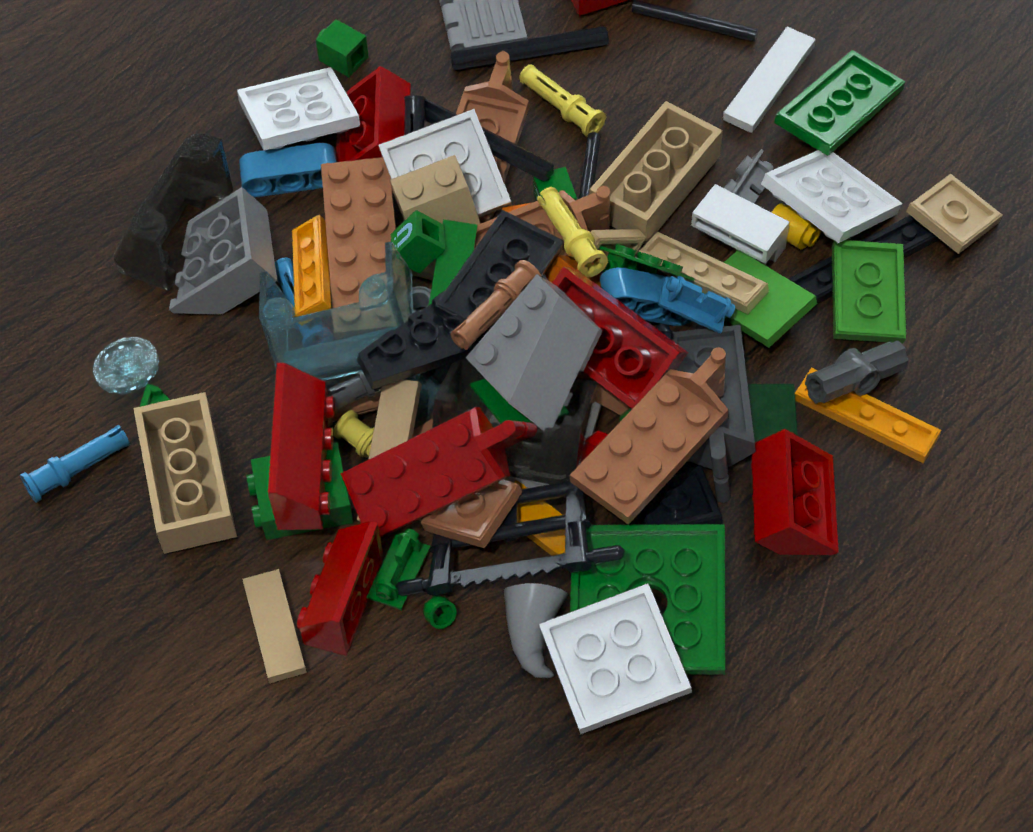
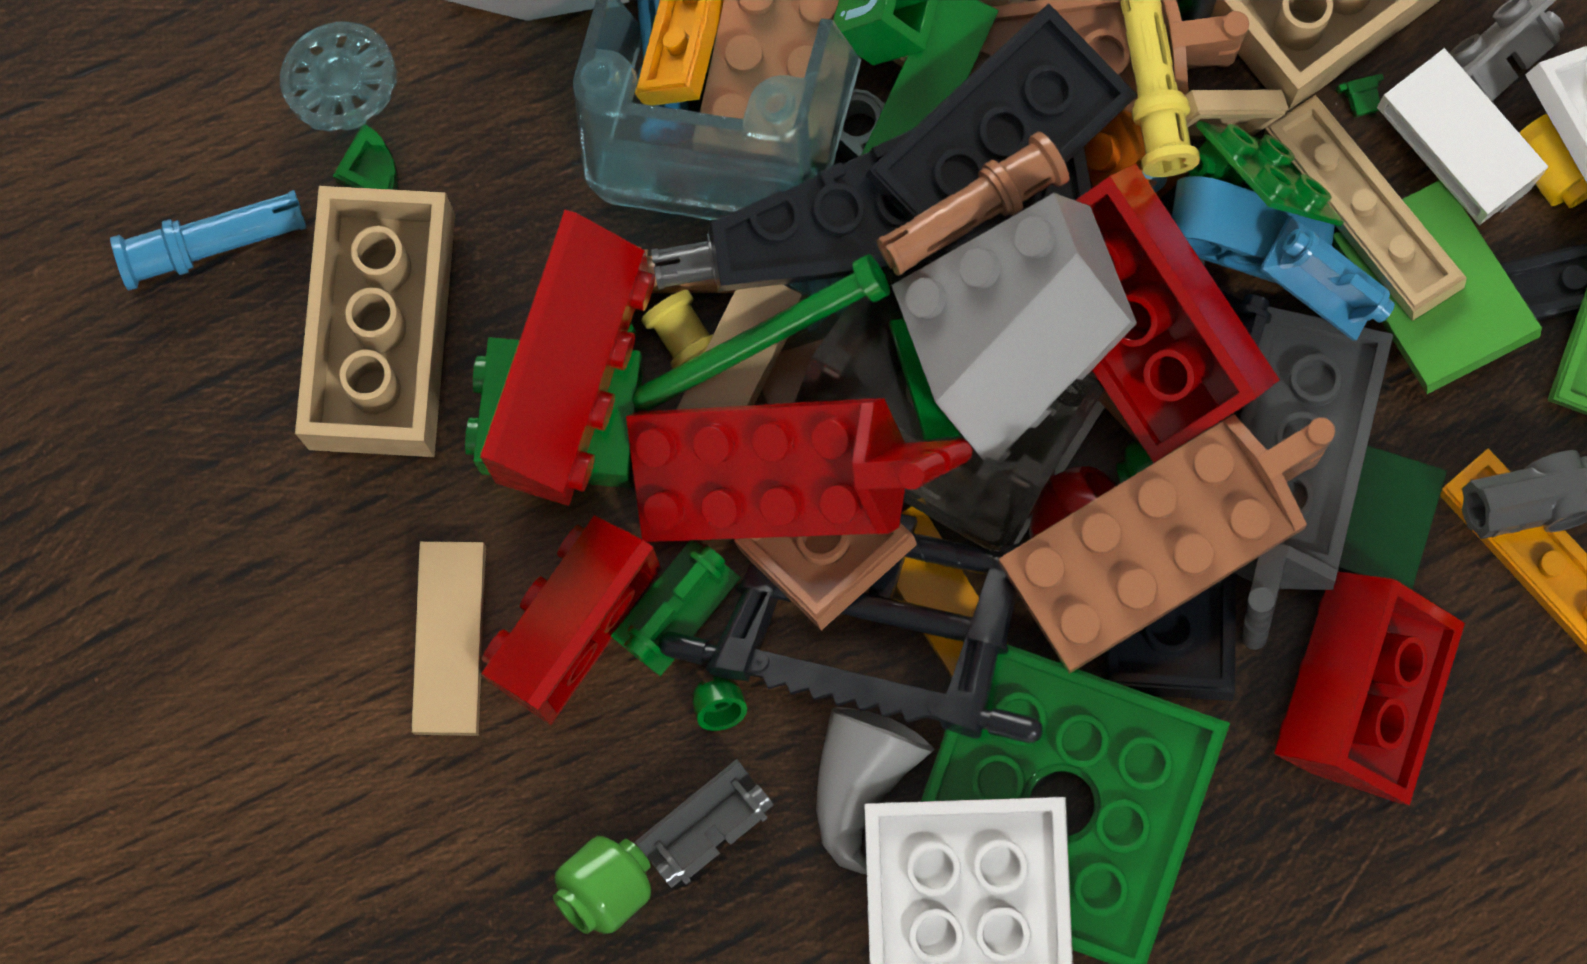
camera: 20 degrees right, 20 degrees up
(402, 409) = (865, 281): none -> green bar
(403, 722) = (602, 885): none -> bright green head
(451, 673) = (716, 812): none -> dark grey hinge
(681, 226) = (1362, 94): none -> green piece

